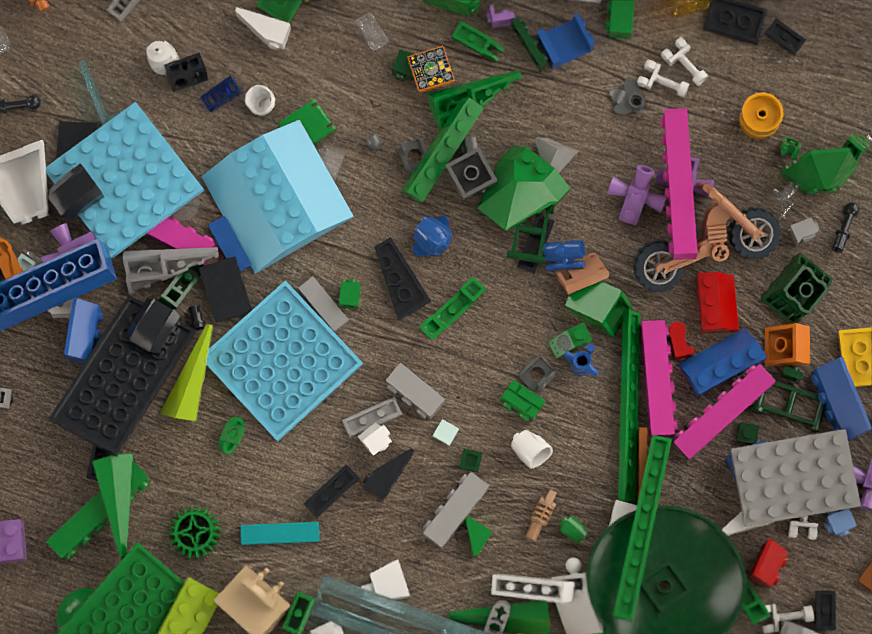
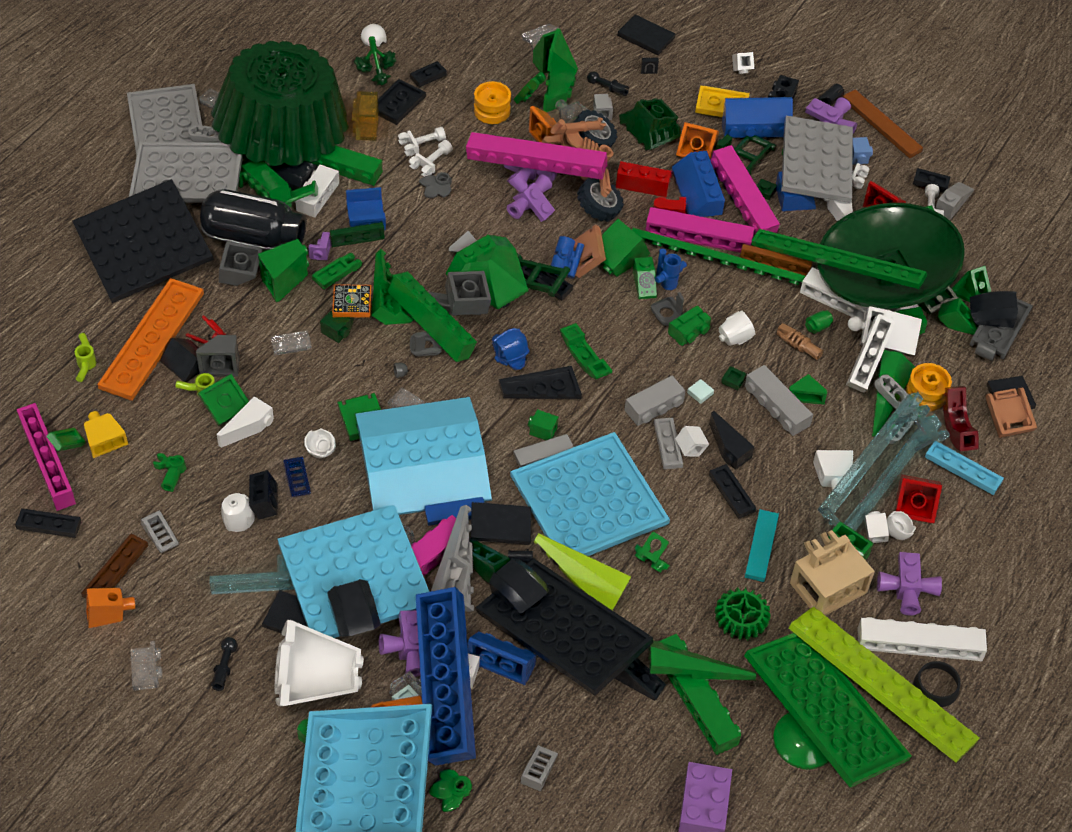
camera: 75 degrees left, 25 degrees down
(743, 183) = (540, 124): none -> orange slope

